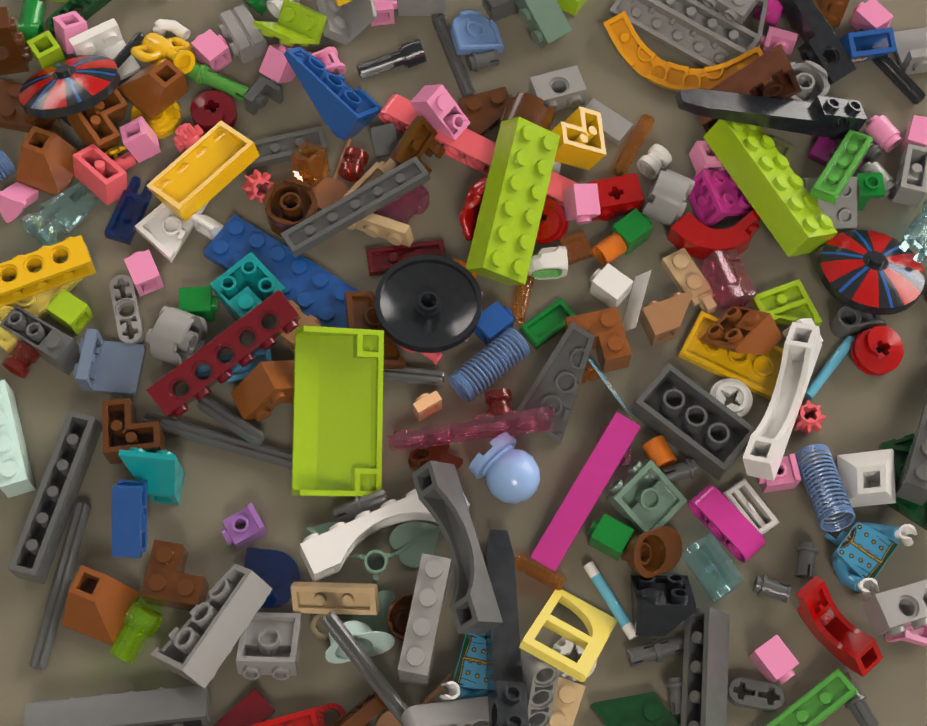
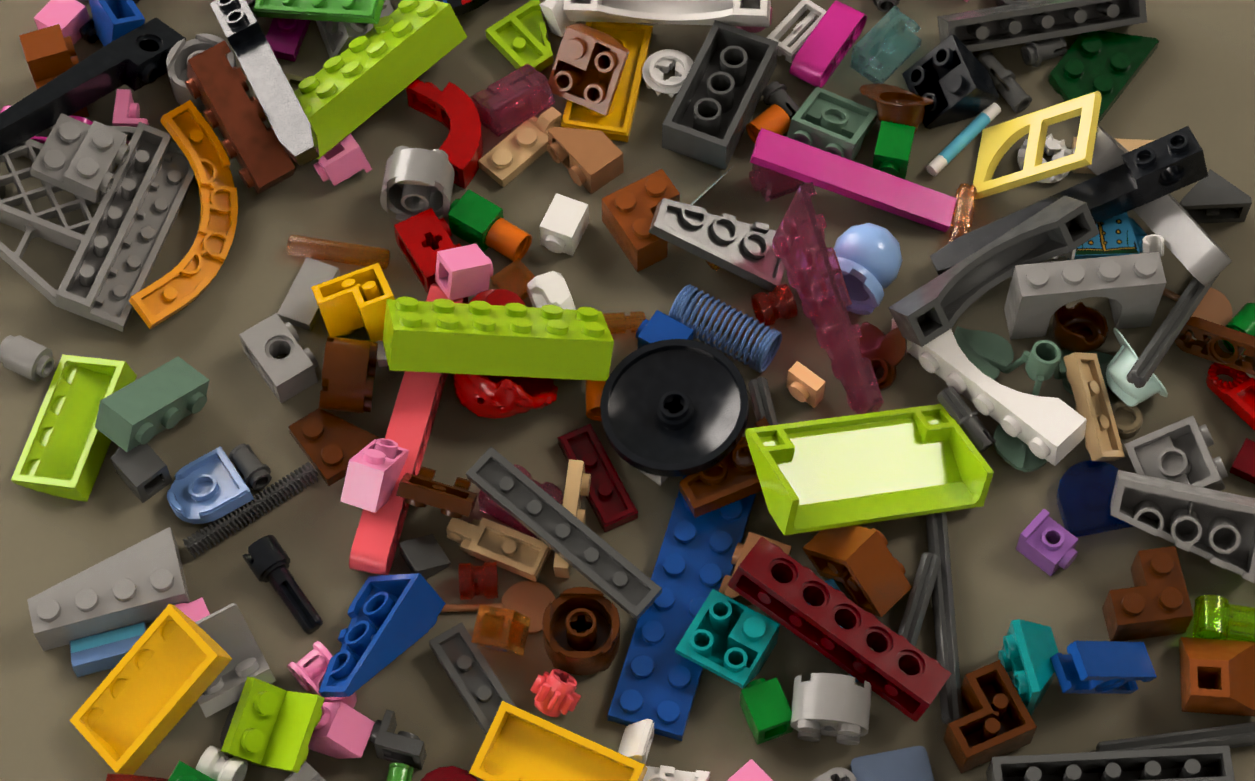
camera: 105 degrees left, 5 degrees down
(546, 324) = (635, 286): green tile -> none
(635, 301) = (583, 190): white sticker -> none
(652, 162) = (360, 218): white wheel -> none
(716, 197) = (391, 127): dark pink bracket -> none

